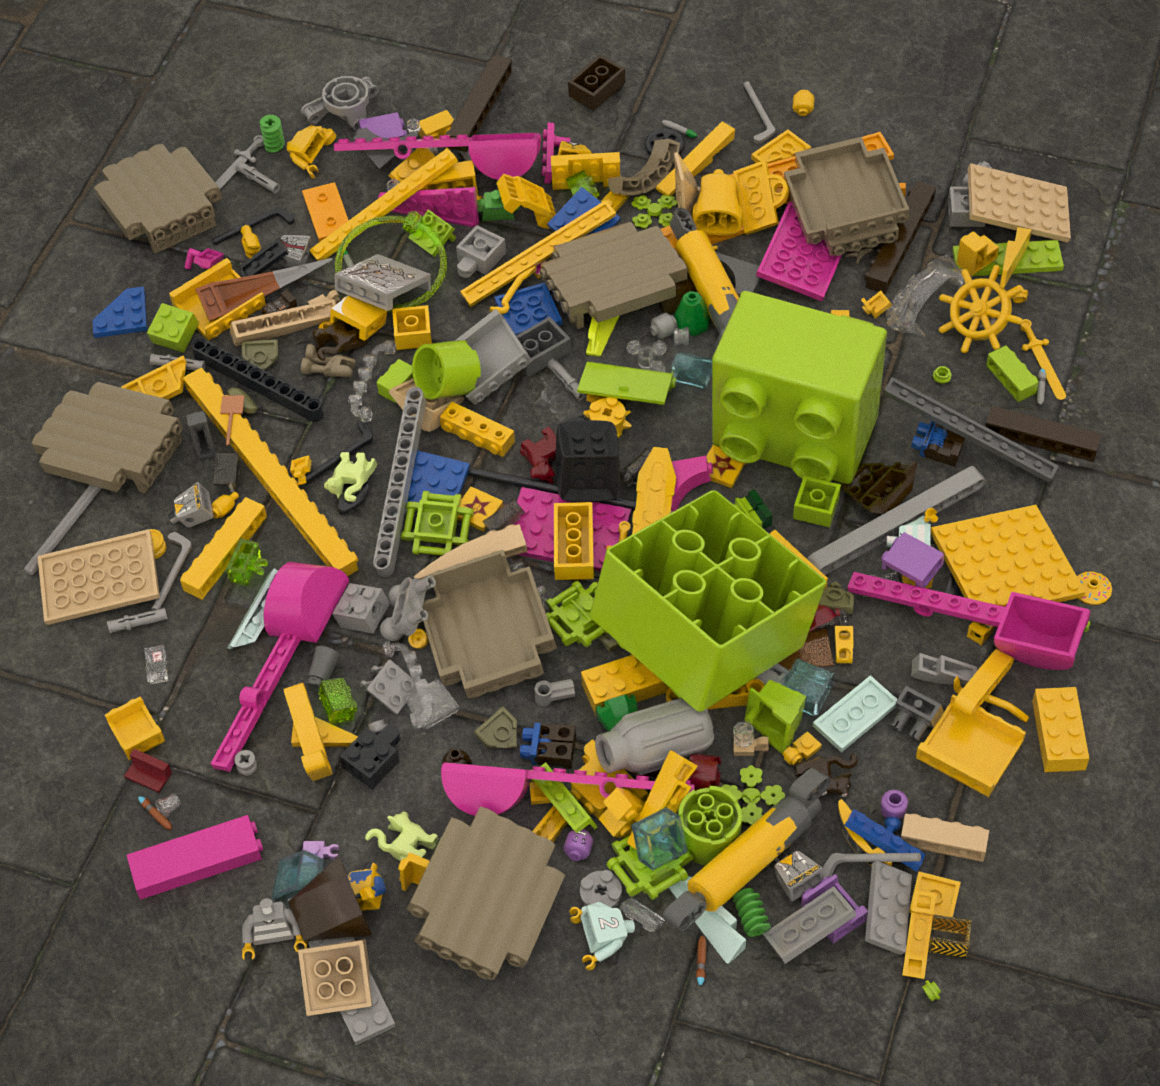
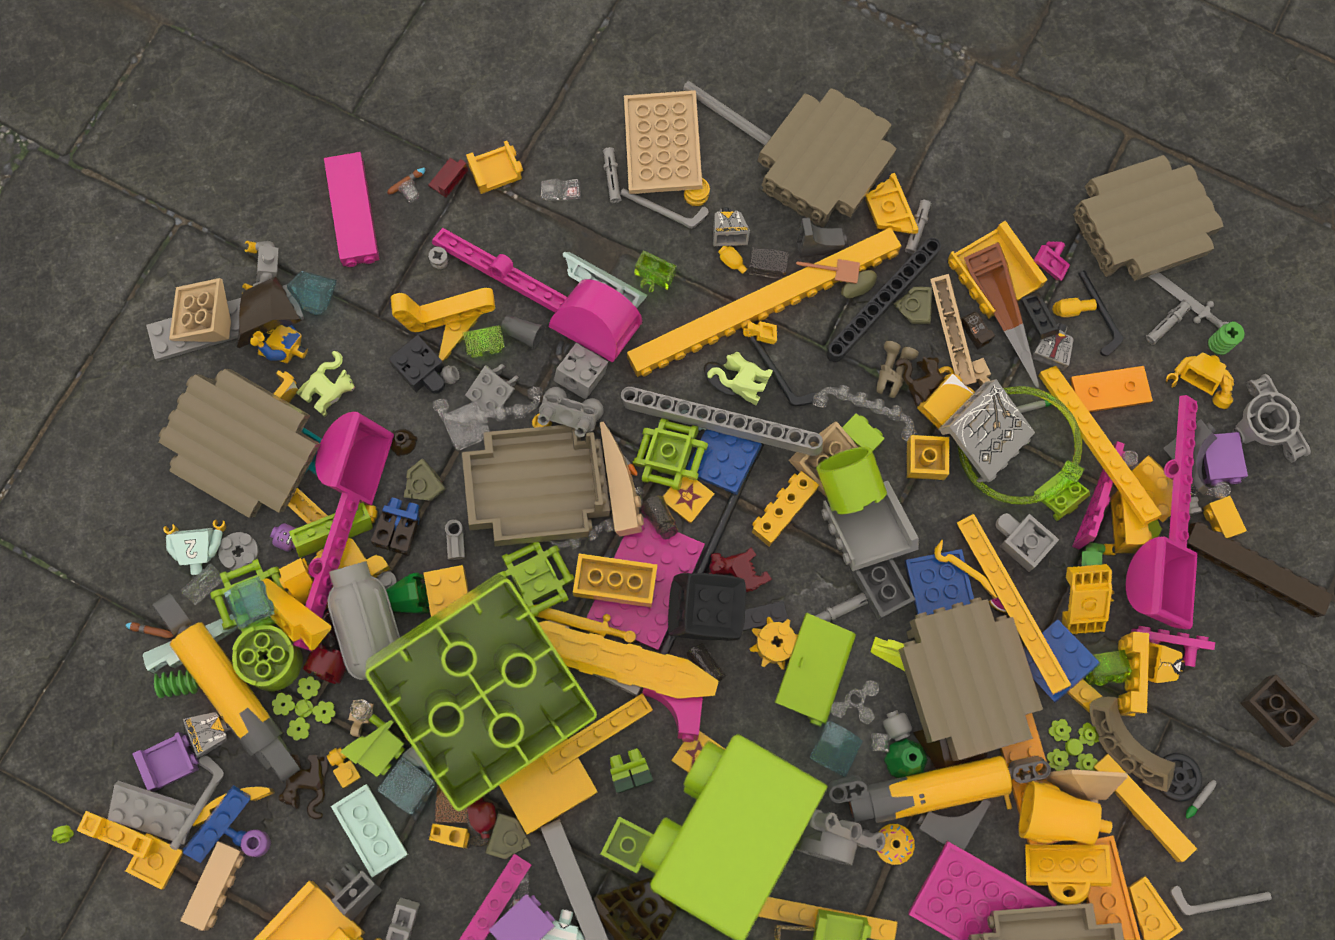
camera: 90 degrees right, 20 degrees up
(123, 315) = (991, 180): blue plate -> none
(172, 327) = (960, 222): lime brick -> none
(217, 554) = (674, 250): yellow brick -> none
(319, 849) = (336, 311): lavender plate -> none
(809, 924) = (147, 733): light grey plate -> none
(953, 925) = (97, 861): clear yellow piece -> none

